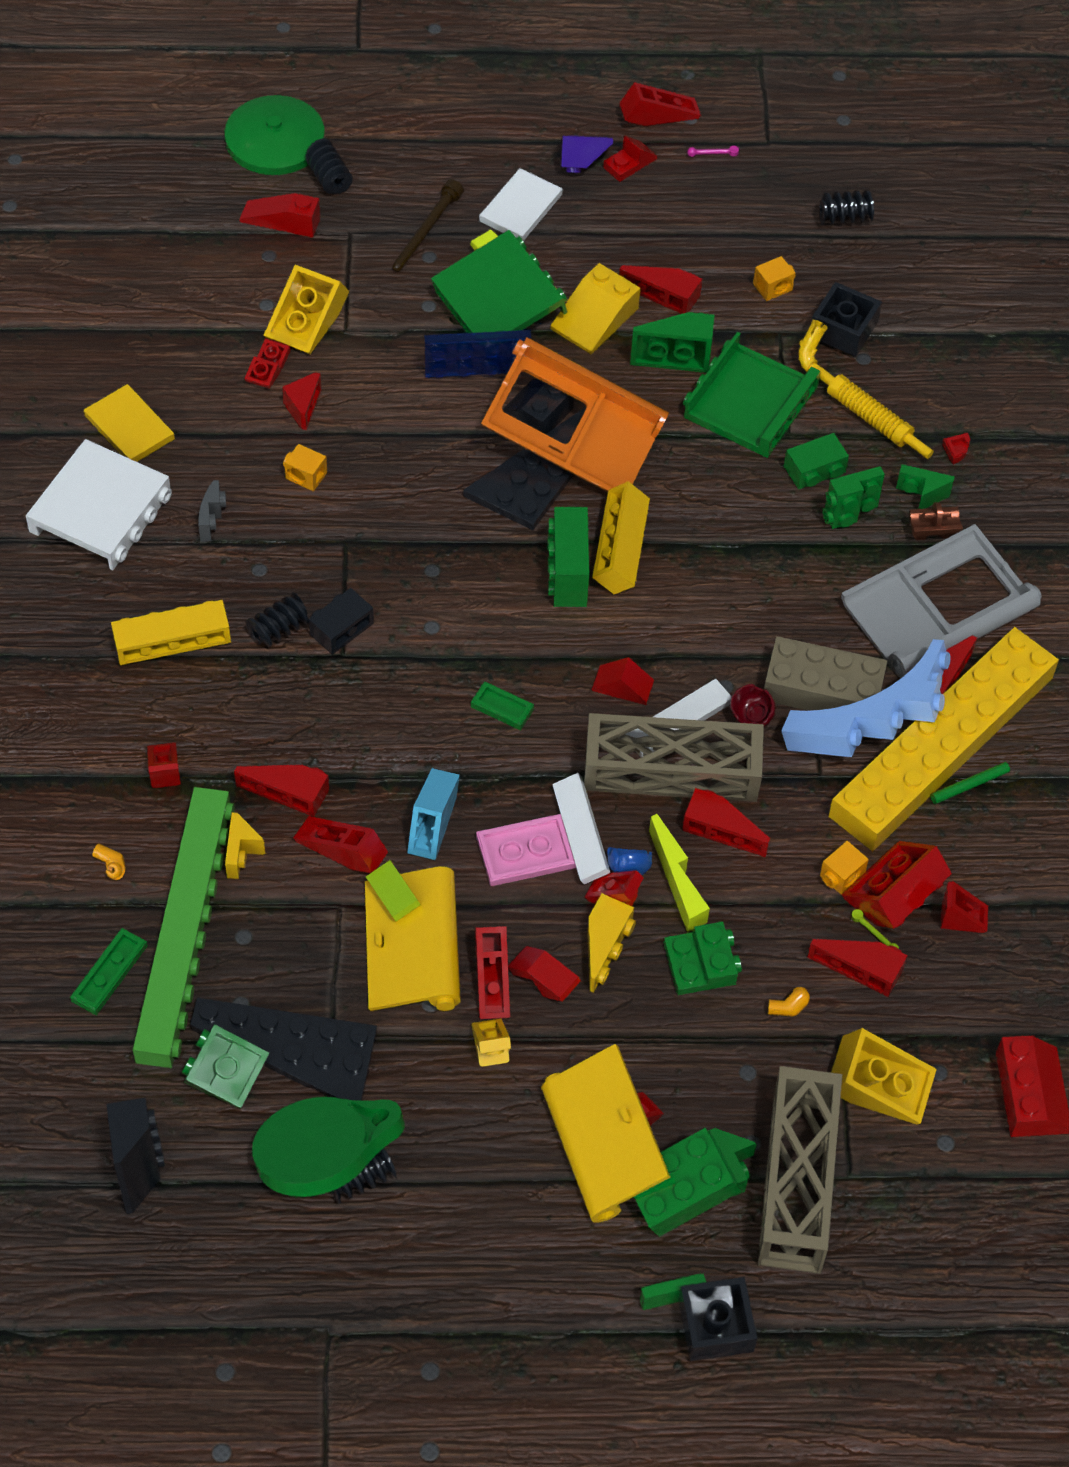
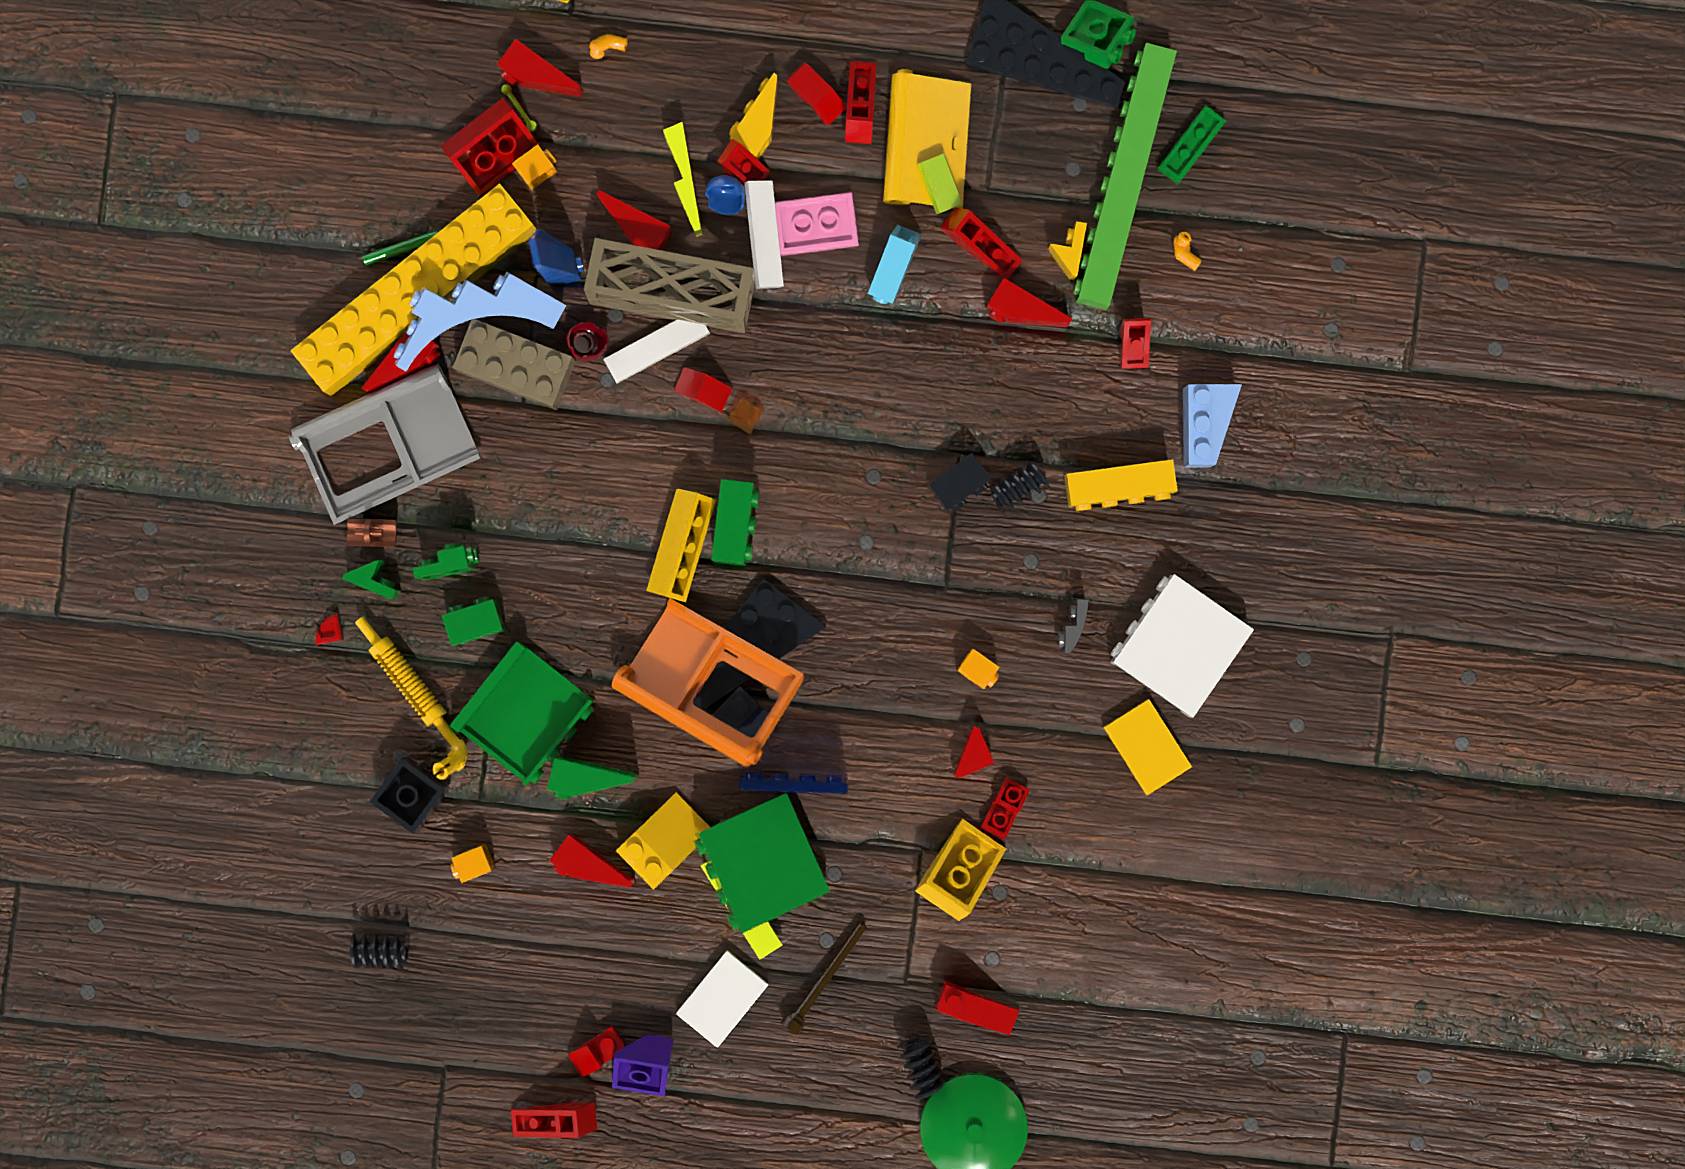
camera: 175 degrees left, 30 degrees up
(80, 699) = (1206, 421): none -> light blue wedge
(491, 1042) = (869, 34): yellow slope -> none
(502, 705) = (818, 378): green tile -> none
(574, 665) = (745, 416): none -> clear orange tile
(702, 958) = (675, 95): green plate -> none
(733, 151) = (484, 1054): dark pink hinge -> none
(802, 766) = (555, 259): none -> blue wedge
(963, 910) = (437, 112): red slope -> none

